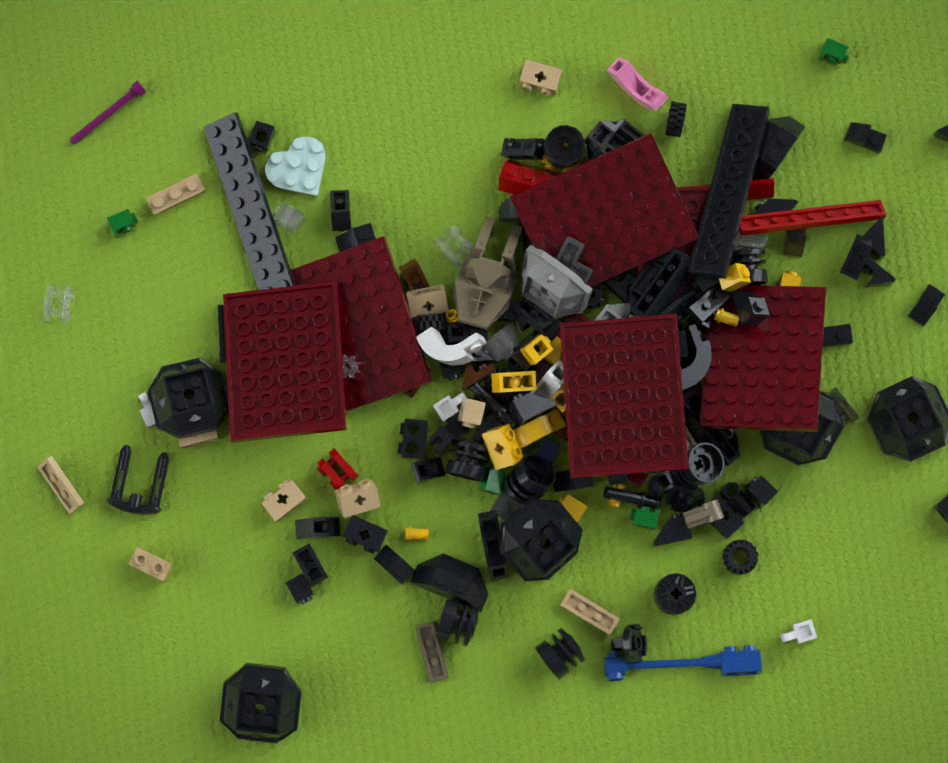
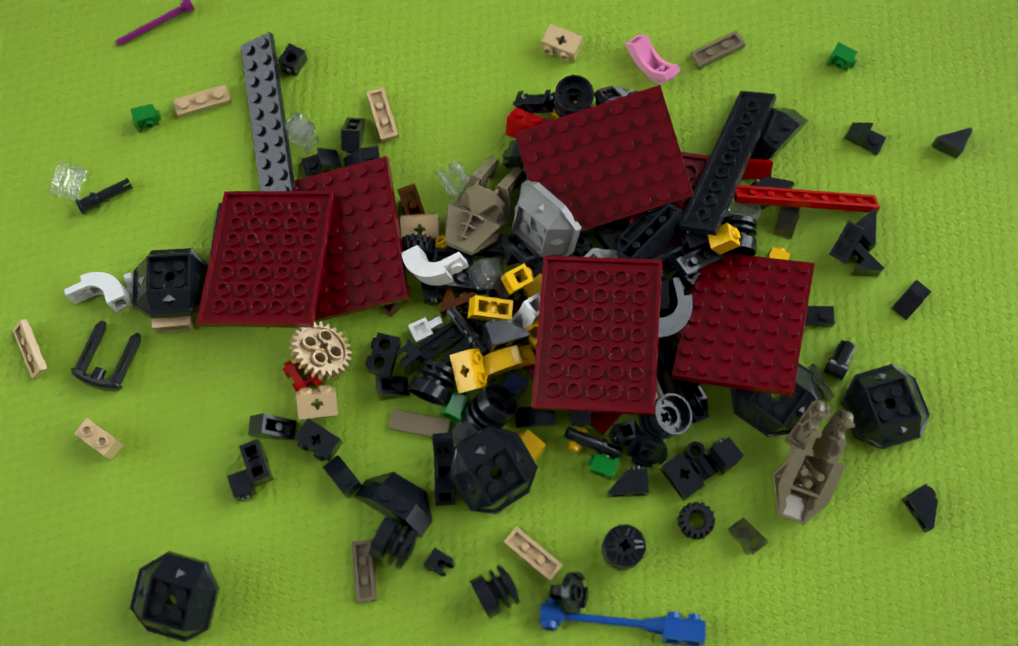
camera: 15 degrees right, 10 degrees down
(89, 319) = (95, 199): none -> black pin
(120, 408) = (100, 284): none -> white arch
(294, 499) = (253, 395): tan brick -> none
(298, 168) = (321, 93): light aqua plate -> none
(312, 245) = (324, 161): none -> black slope
(352, 446) = (320, 345): none -> tan gear
(354, 366) = (334, 275): clear gear -> none
(366, 183) = (382, 114): none -> tan plate
(416, 534) = (370, 448): yellow pin -> none
(459, 503) = (417, 423): none -> dark tan tile
(471, 413) = (443, 333): tan brick -> none
(499, 634) = (438, 559): none -> black hinge
(568, 257) = (564, 192): dark grey plate -> none
(676, 119) = (684, 94): black tyre -> none
(703, 59) = (717, 49): none -> dark tan tile
(707, 512) = (669, 468): dark tan piece -> none
(726, 317) = (711, 277): yellow pin -> none
(750, 307) = (737, 271): black slope -> none
(790, 565) = (747, 536): none -> clear smoke slope
(801, 632) = (752, 608): white plate -> none
(843, 488) = (808, 482): none -> dark tan connector
(860, 383) = (838, 364): none -> black piece

